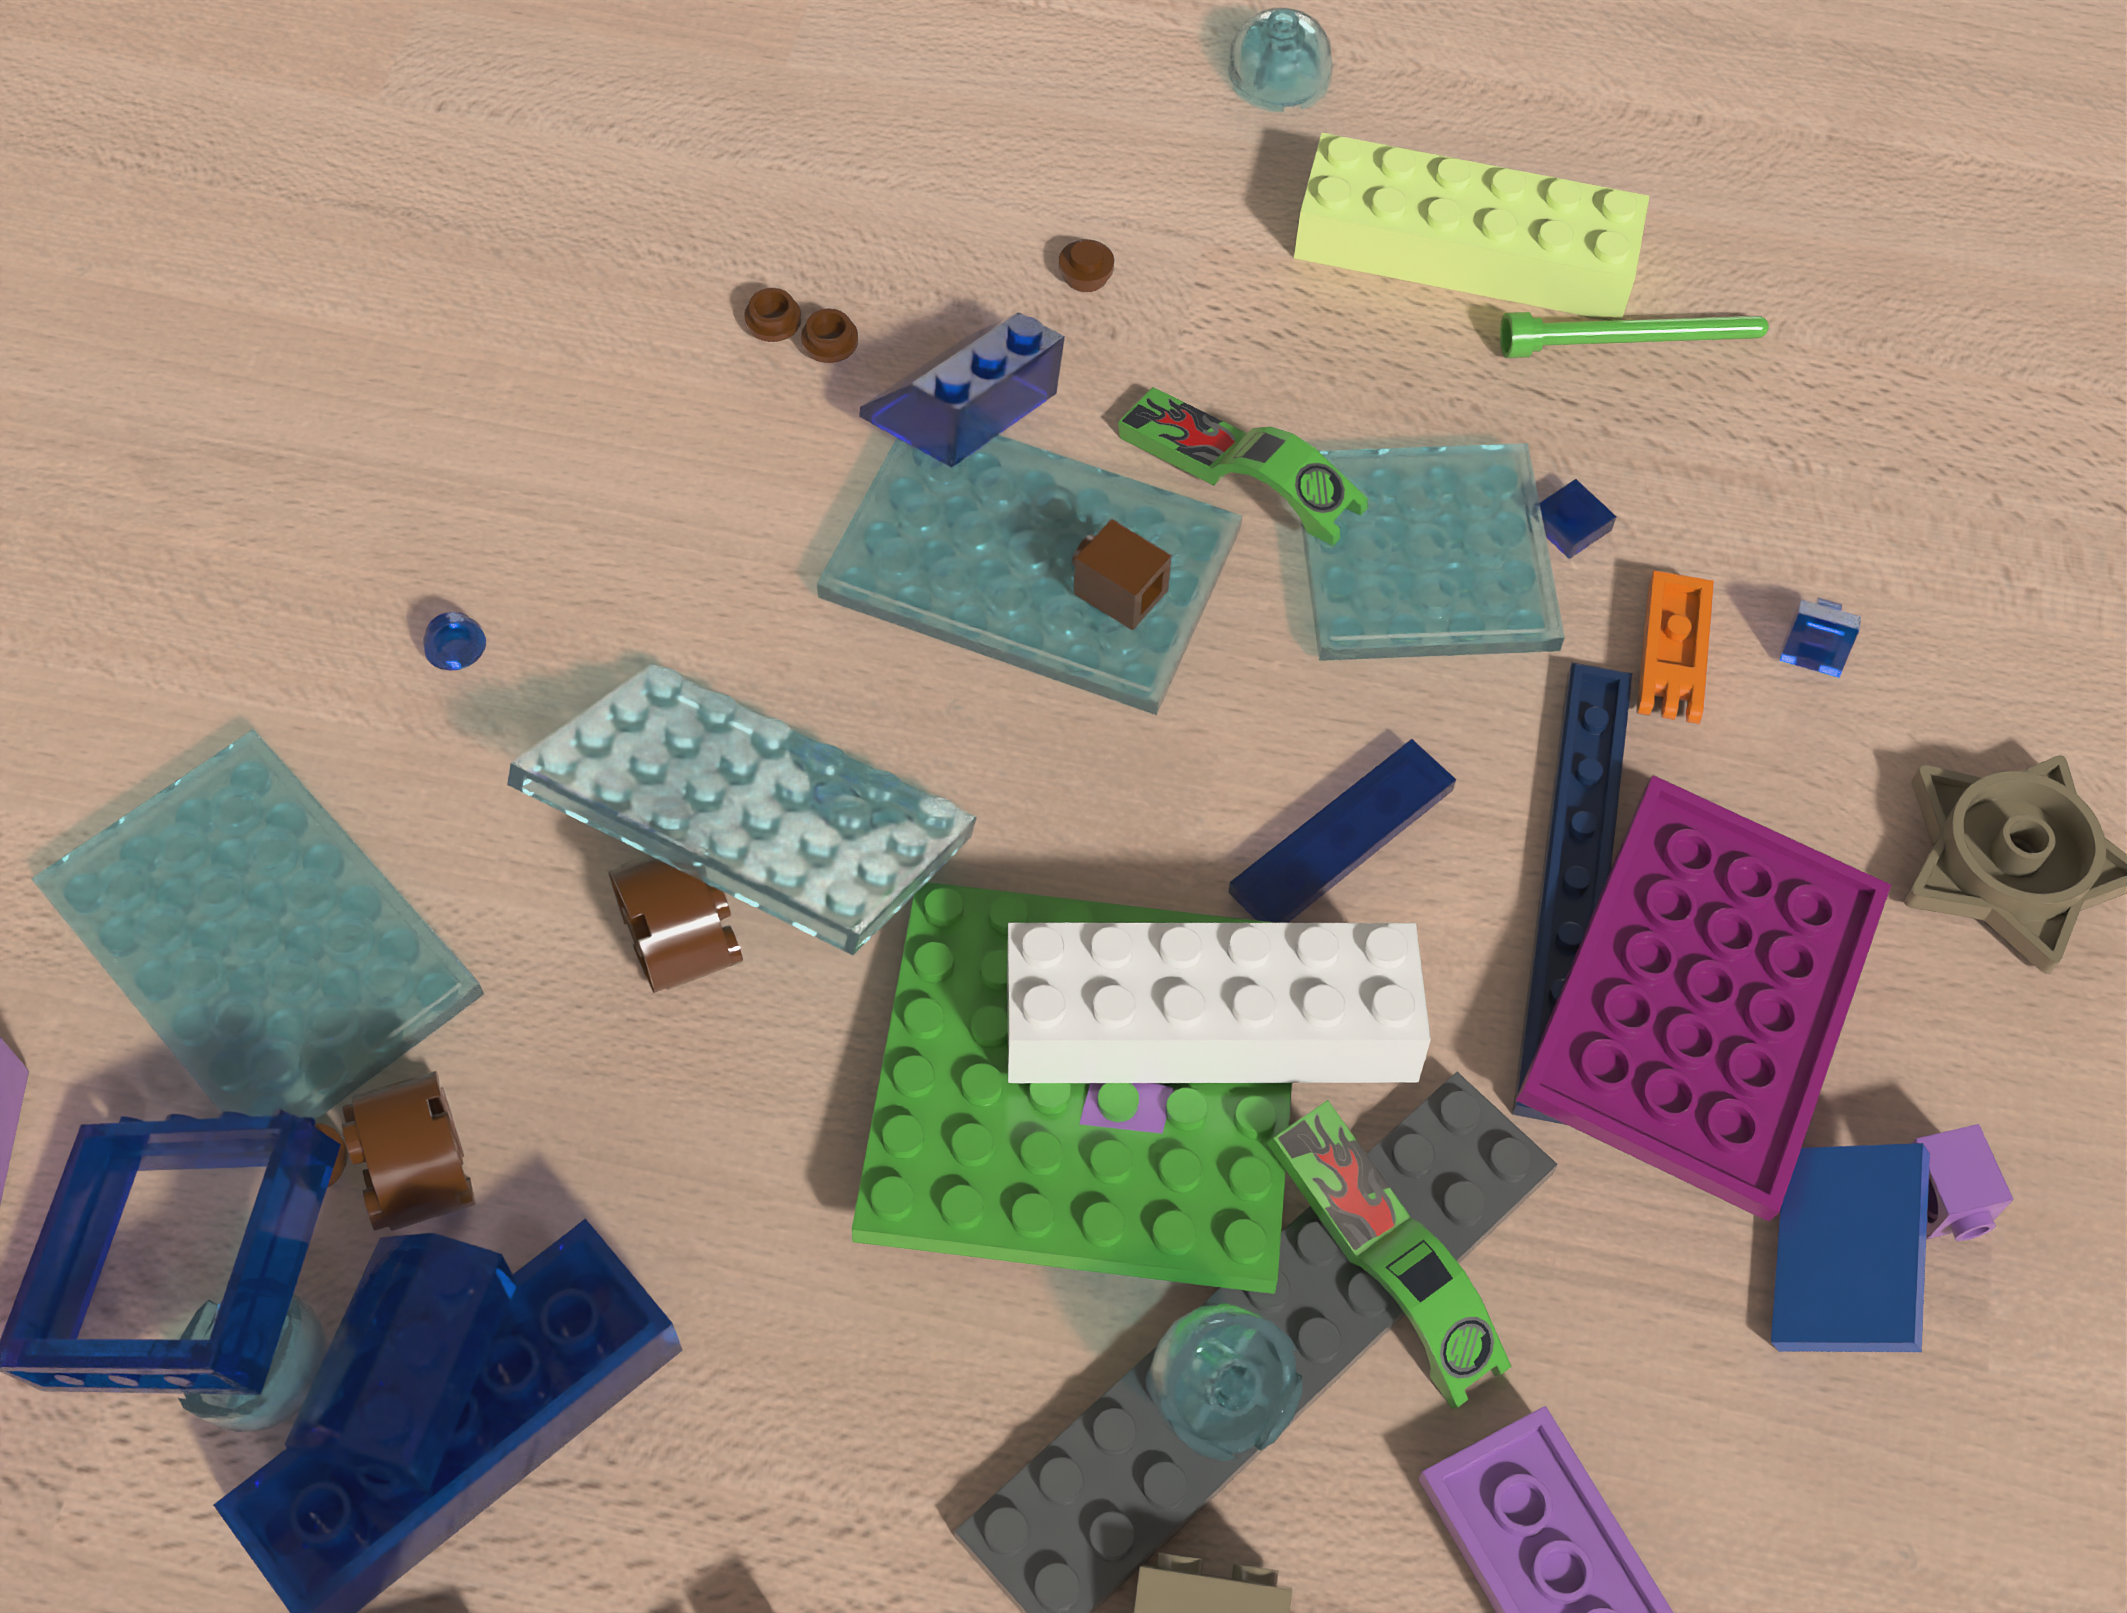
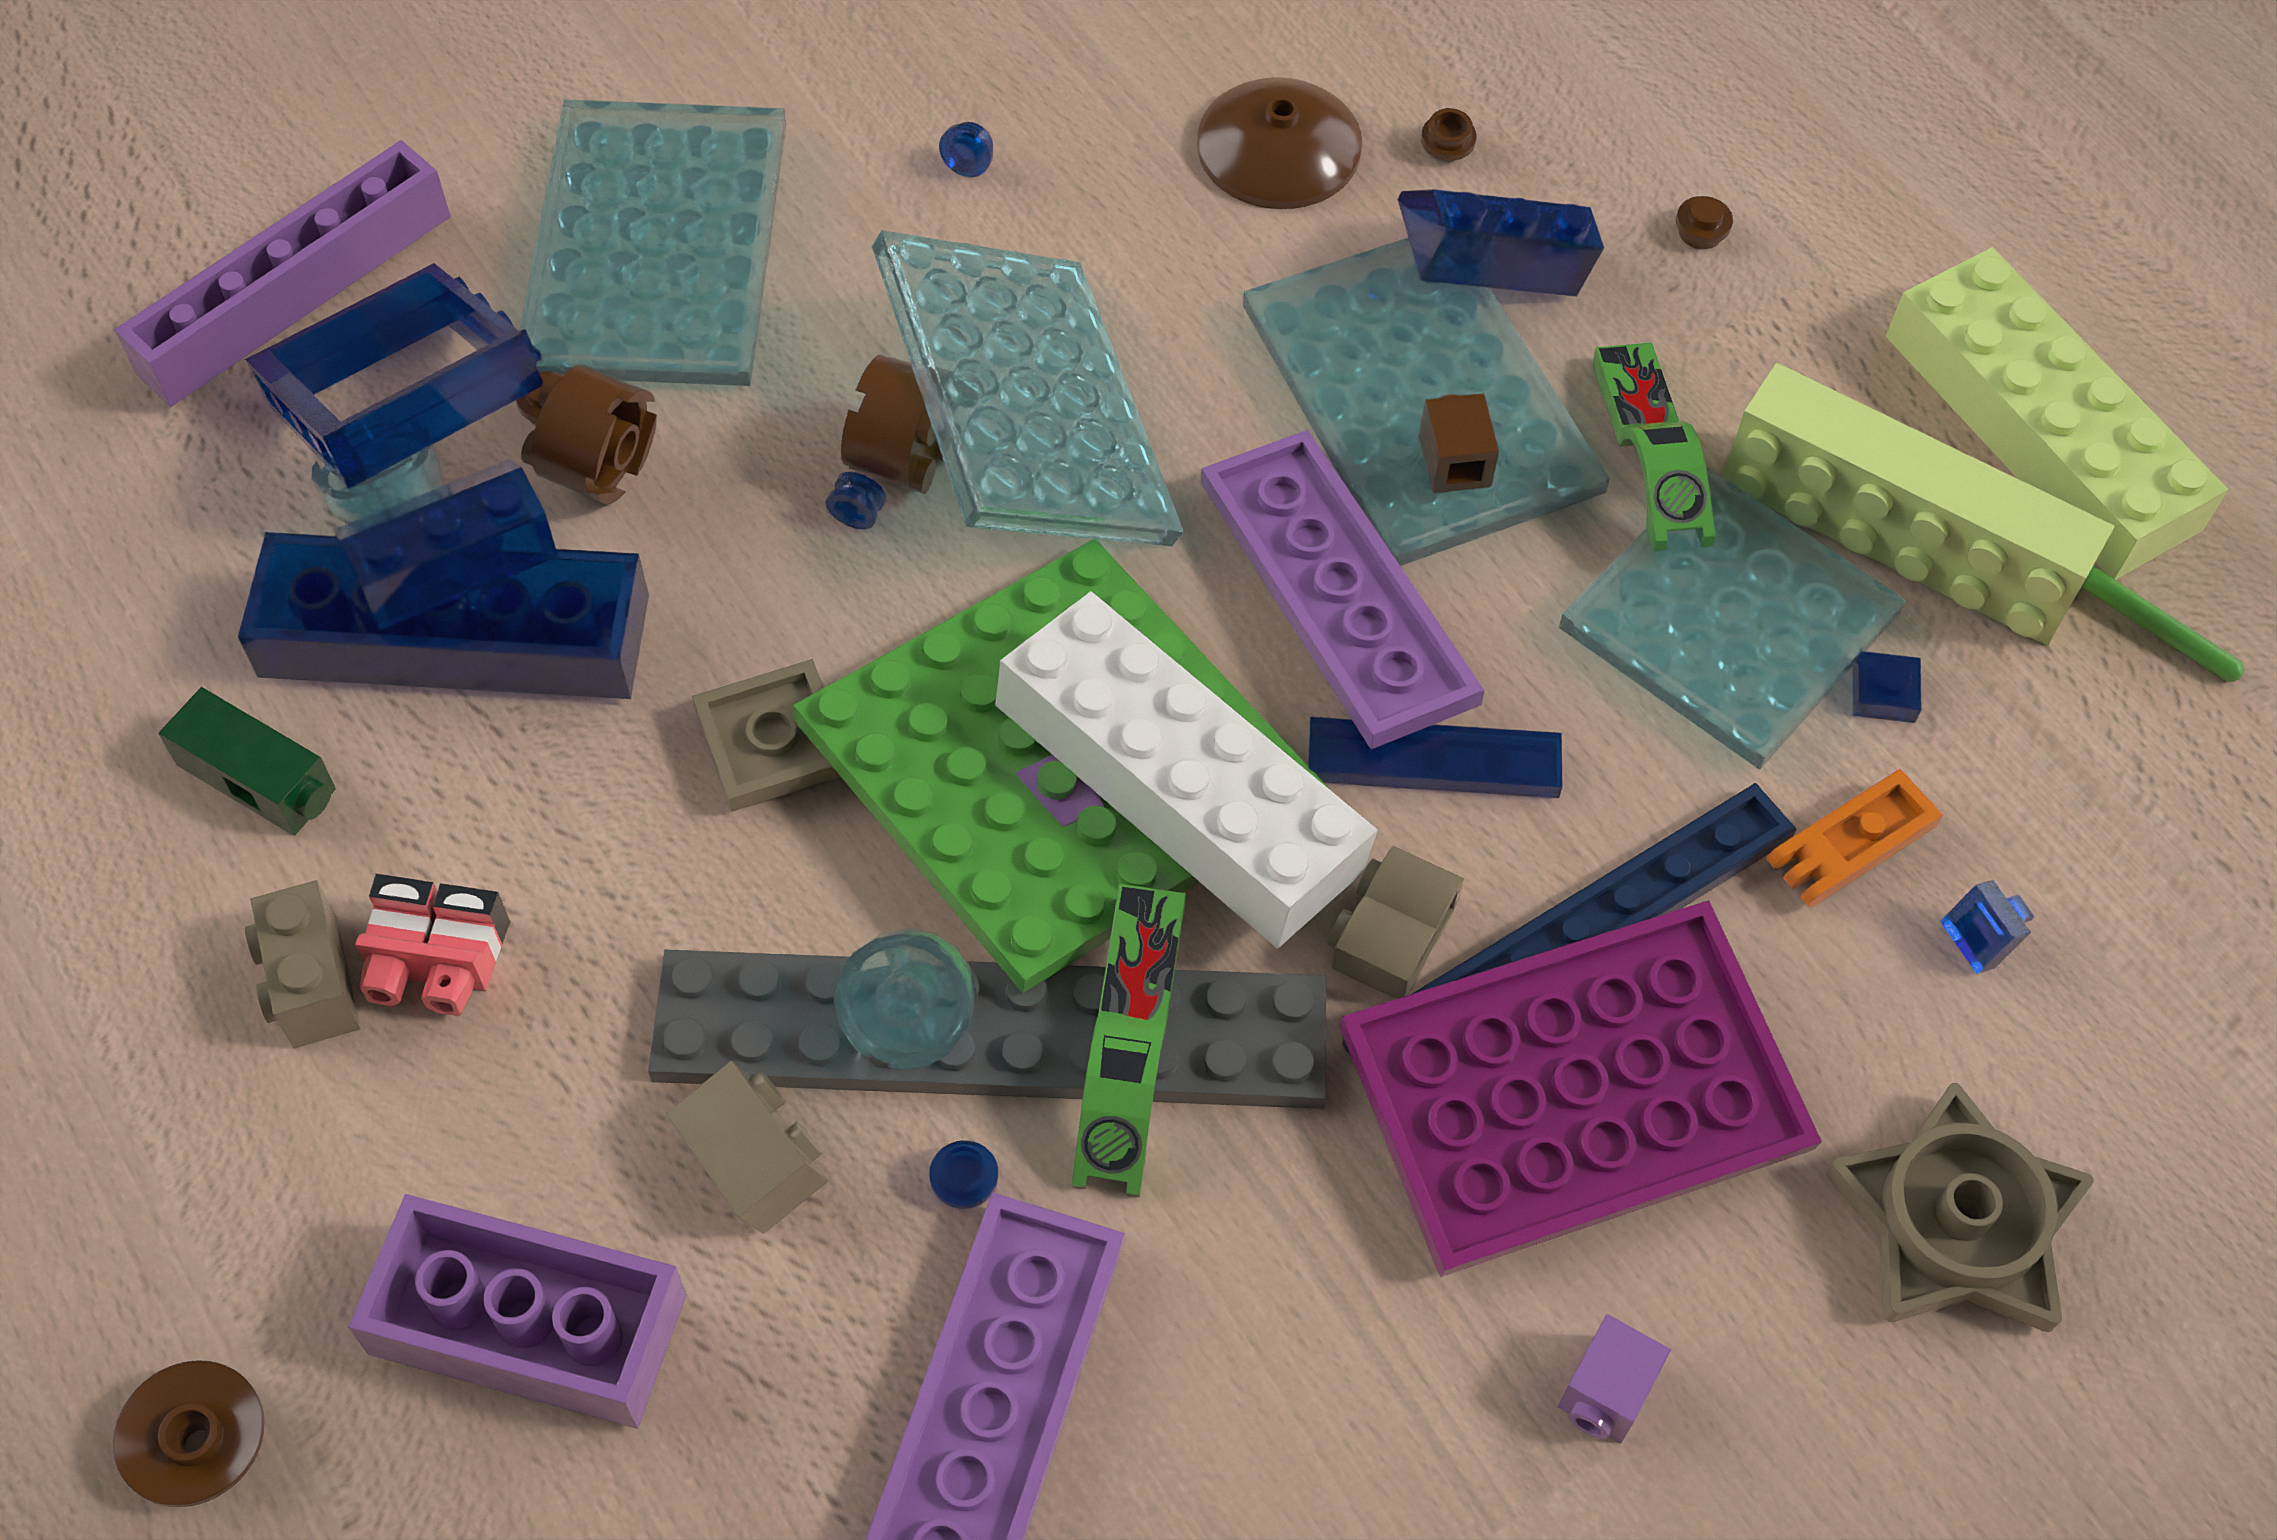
camera: 45 degrees right, 0 degrees up
(691, 1014) = (856, 500): none -> clear blue bush
(704, 460) = (1279, 143): none -> reddish brown dish
(772, 315) = (1423, 91): reddish brown plate -> none
(827, 1283) = (756, 740): none -> dark tan plate
(1145, 761) = (1341, 589): none -> medium lavender plate
(1280, 60) = (2042, 180): clear light blue cylinder -> none
(1376, 1479) = (963, 1174): none -> clear blue plate
(1468, 987) = (1395, 922): none -> dark tan brick
(1469, 366) = (1914, 503): none -> yellowish green brick
(1853, 1250) = (1472, 1344): blue tile -> none

